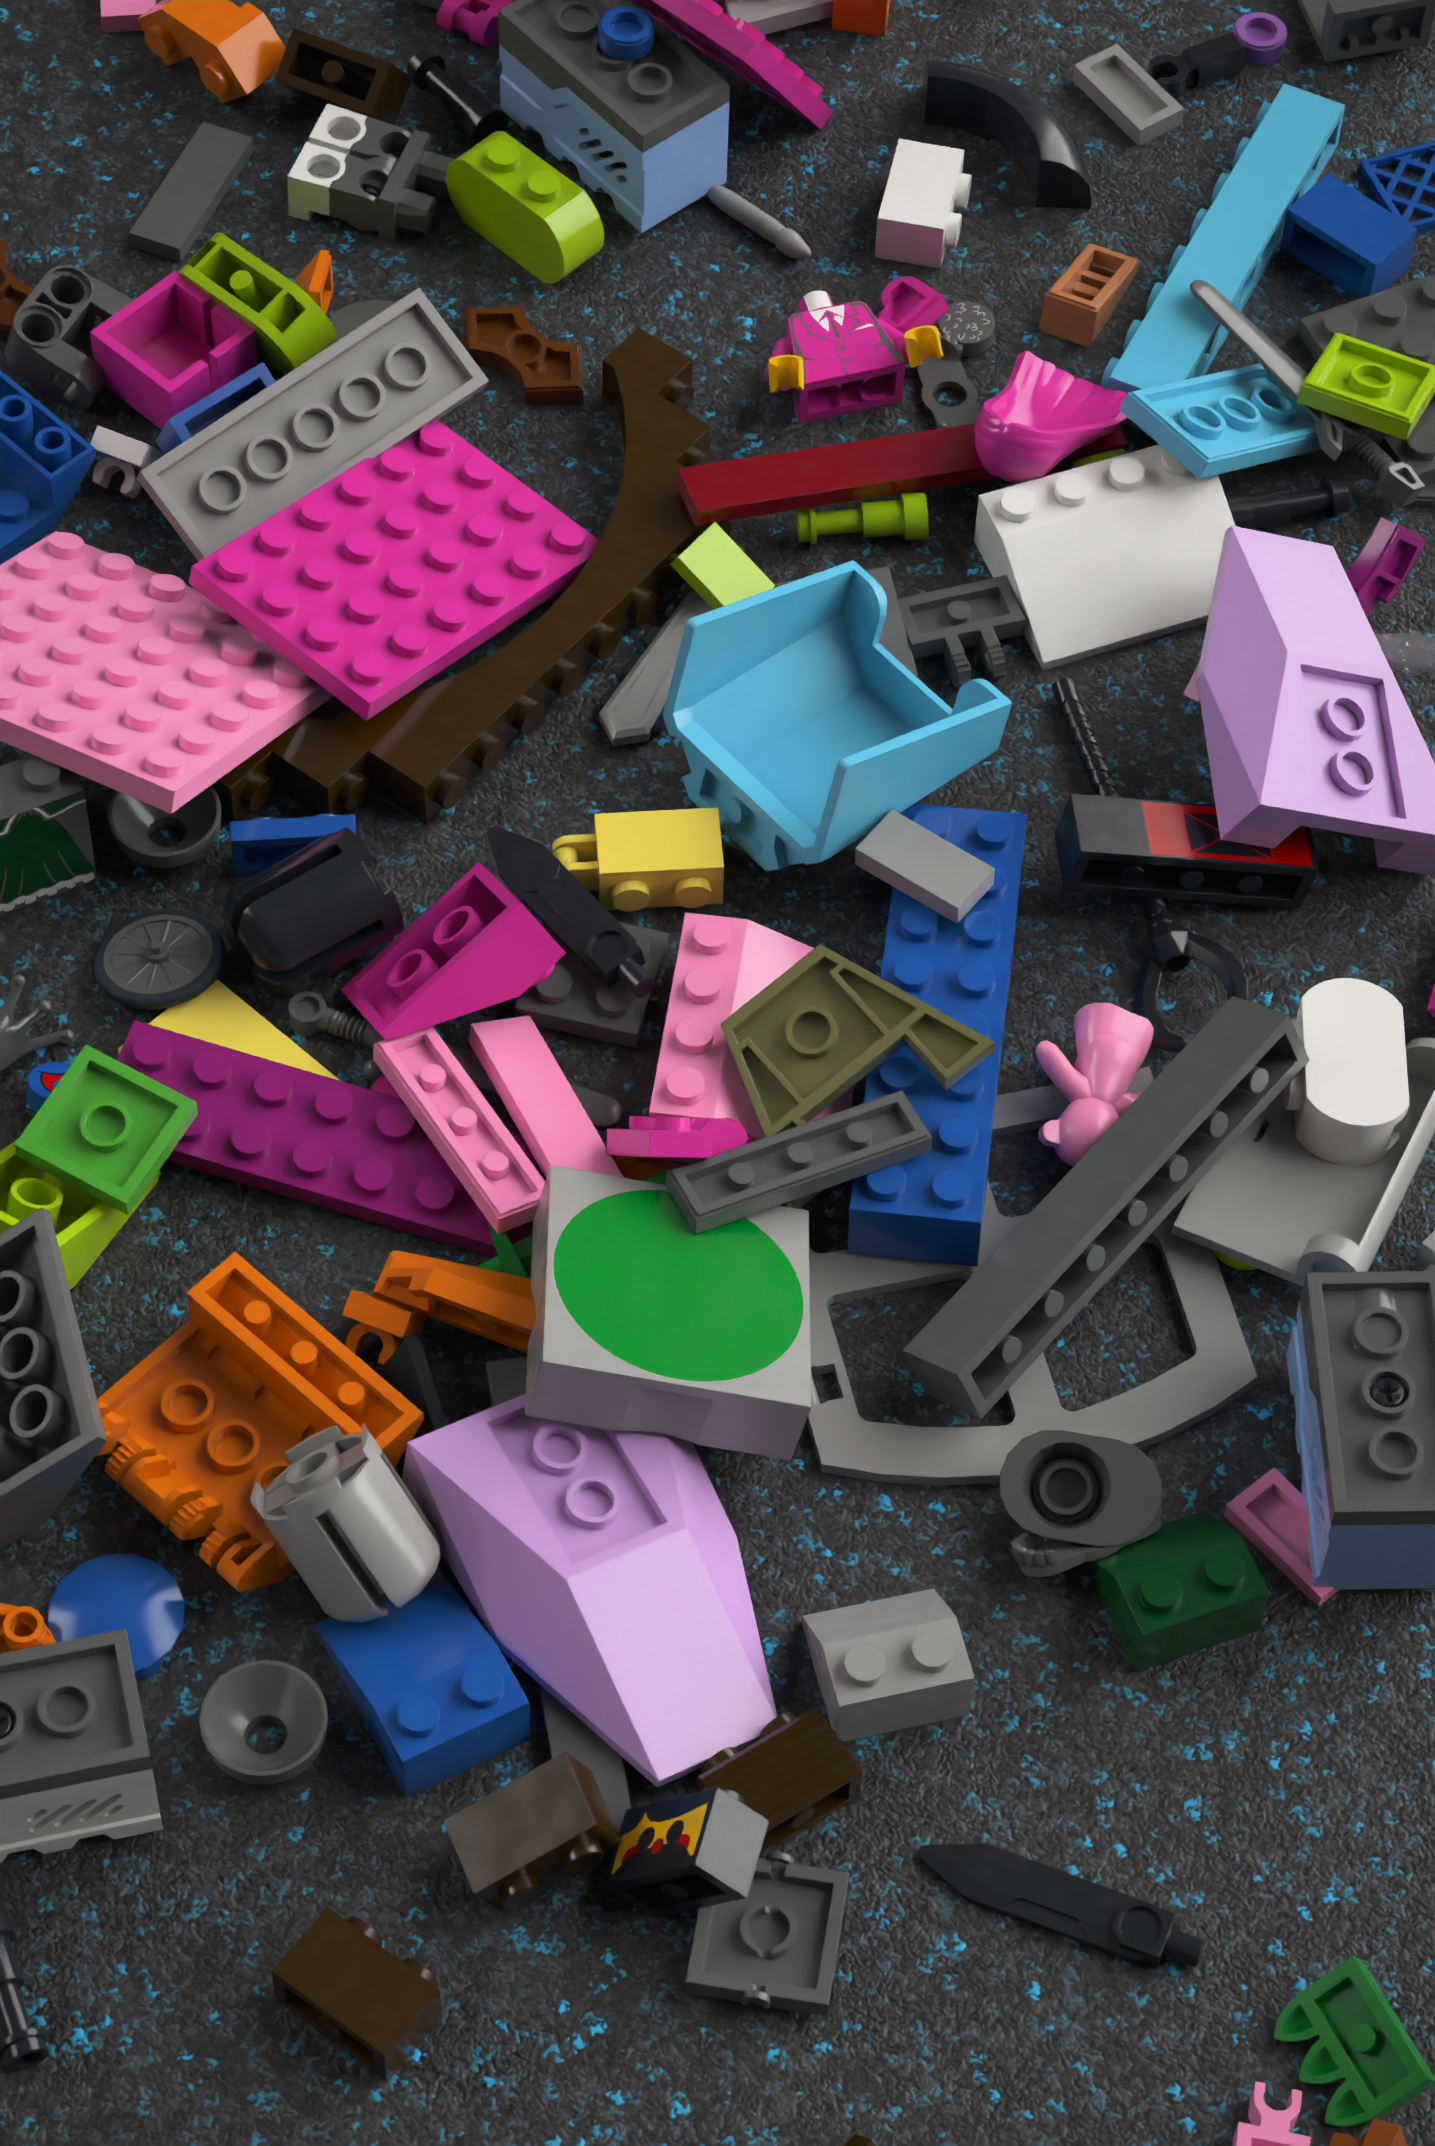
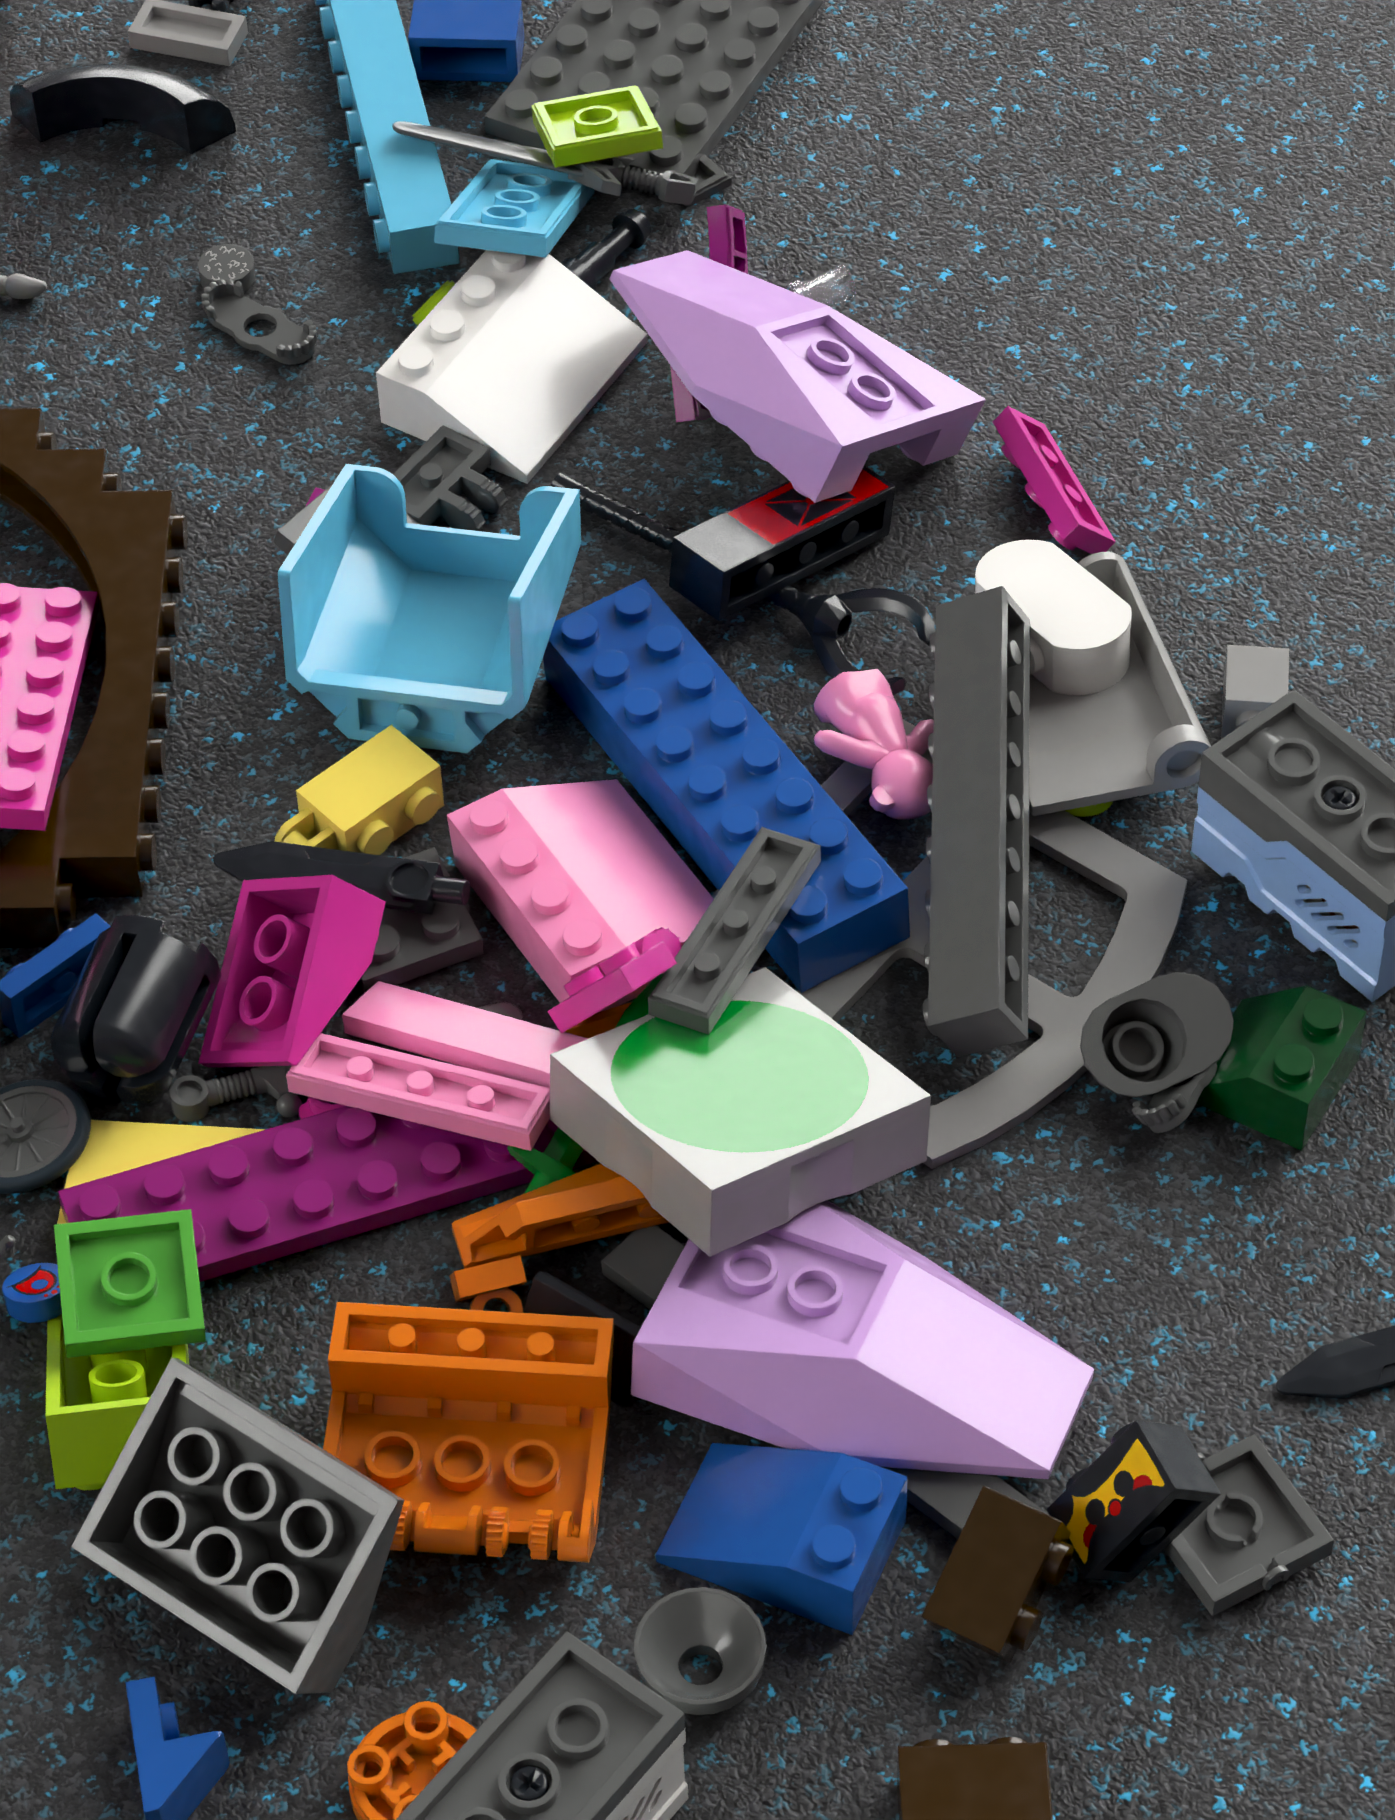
camera: 35 degrees left, 5 degrees down
(118, 1595) = (480, 1655): blue dish -> none
(349, 1525) = (627, 1404): light grey cylinder -> none
(637, 705) = (227, 670): light grey sword -> none
(720, 569) = (227, 558): lime tile -> none
(788, 1775) = (1134, 1381): dark brown brick -> none
(829, 1028) = (659, 819): olive wing -> none
(844, 358) = (156, 341): dark pink torso -> none
(845, 473) = (278, 394): dark red tile -> none
(873, 519) = (318, 431): lime piece -> none
(890, 1664) = (1129, 1263): light grey slope -> none
(911, 304) = (170, 279): dark pink tile -> none
(921, 203) = (106, 196): white brick -> none
(924, 866) = (611, 658): light grey tile -> none
(1042, 420) = (373, 292): dark pink hair -> none
(1084, 300) = (299, 192): nougat slope -> none
(1276, 1522) = (1293, 964): bright pink tile -> none

